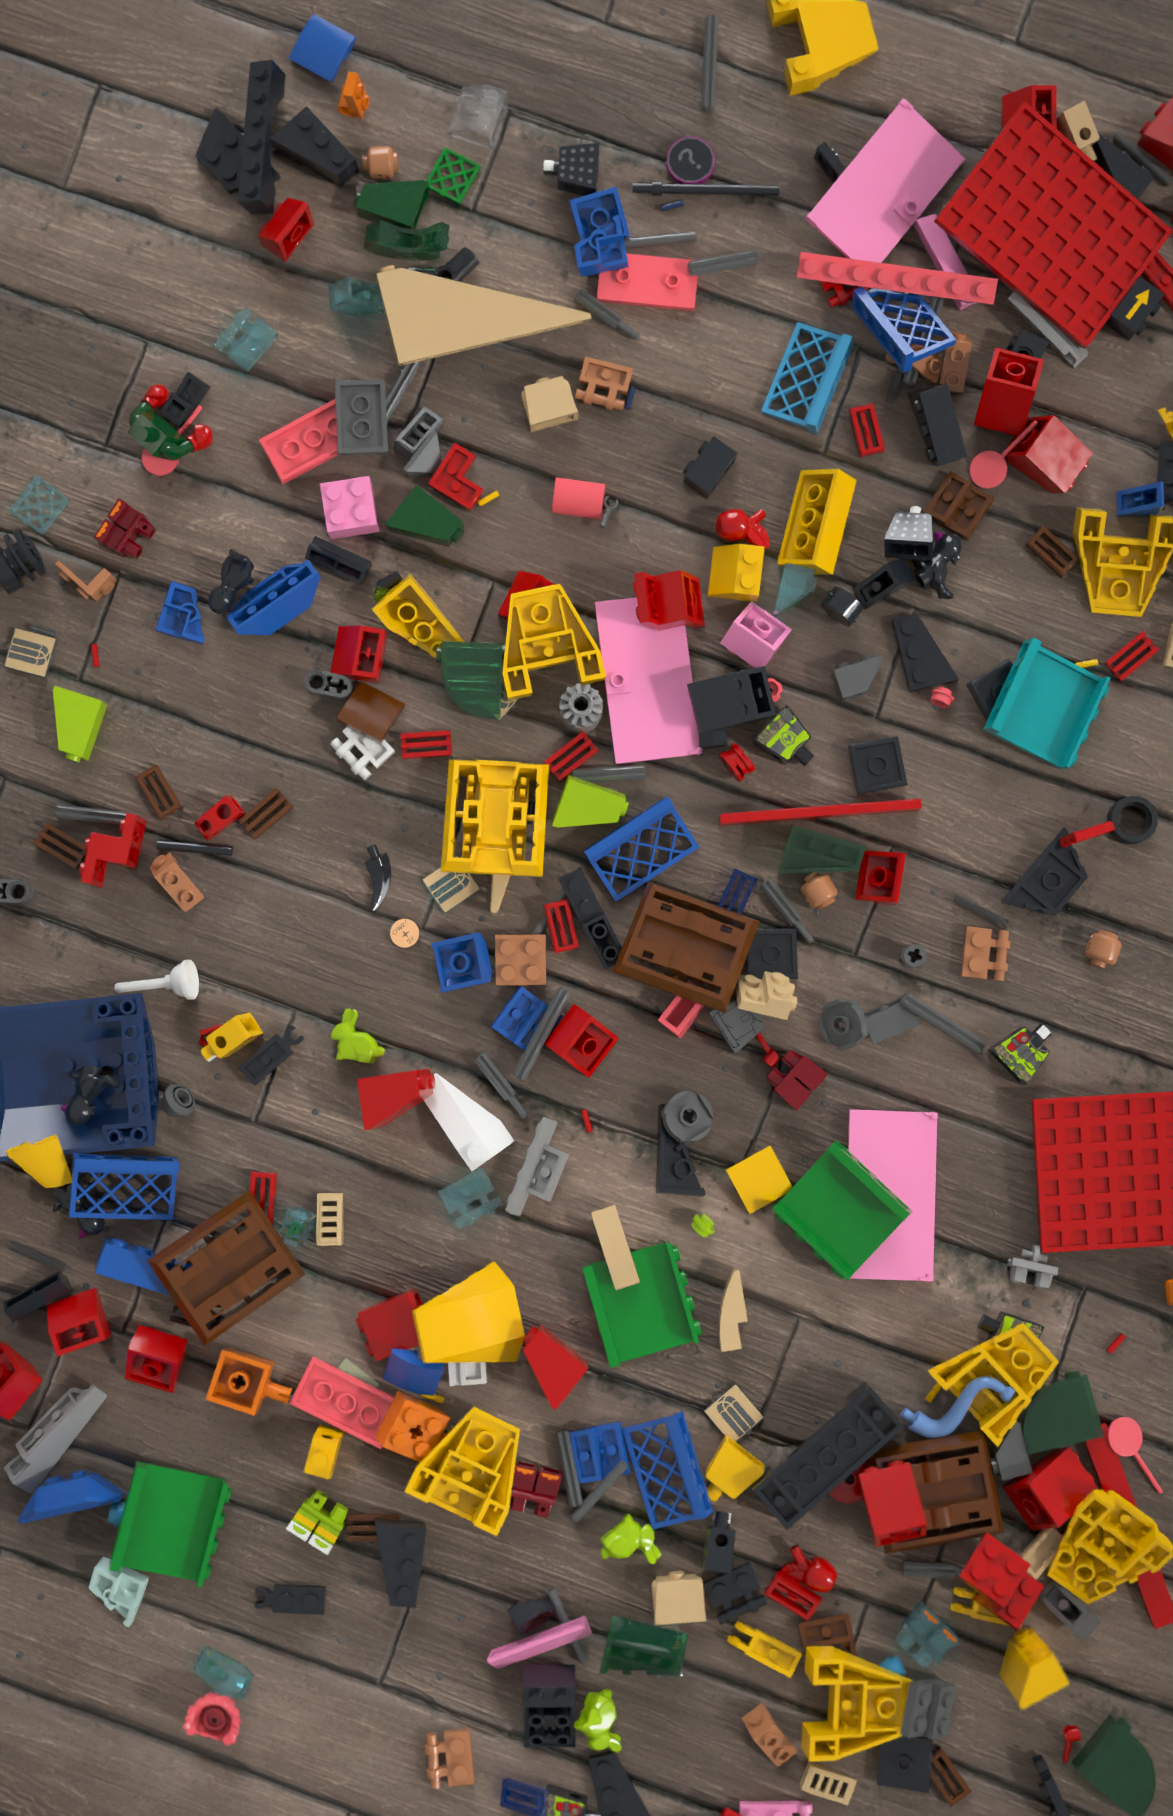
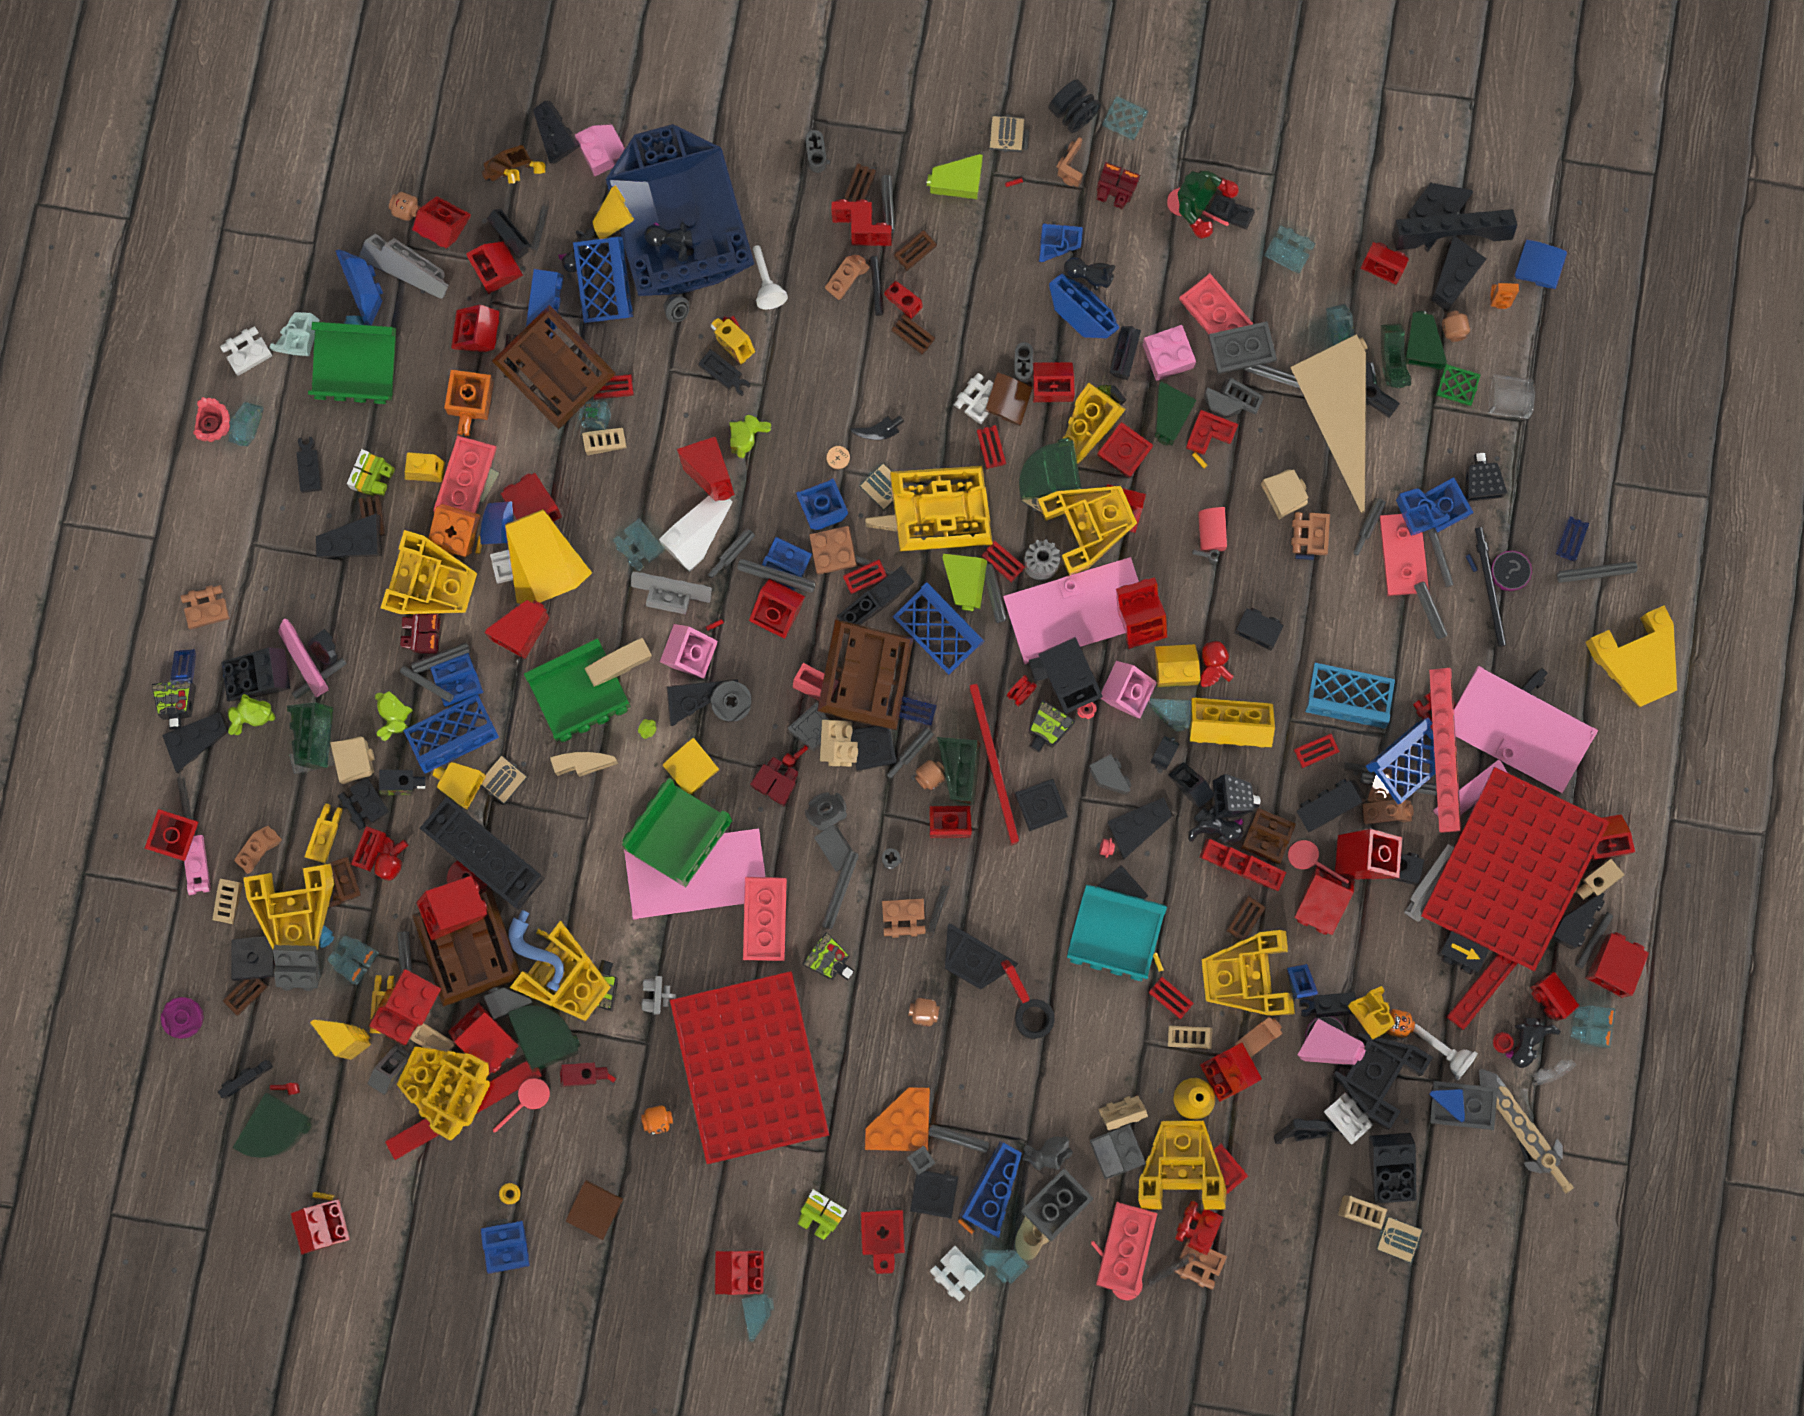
camera: 80 degrees right, 5 degrees down
(134, 1656) = (248, 356): none -> white plate
(460, 583) = (1125, 450): none -> red plate
(616, 1158) = (688, 651): none -> bright pink slope
(652, 65) = (1578, 523): none -> clear blue tile
(961, 1121) = (764, 918): none -> coral plate
(988, 542) = (1242, 864): none -> red slope
(1112, 1385) = (571, 1074): none -> dark red torso

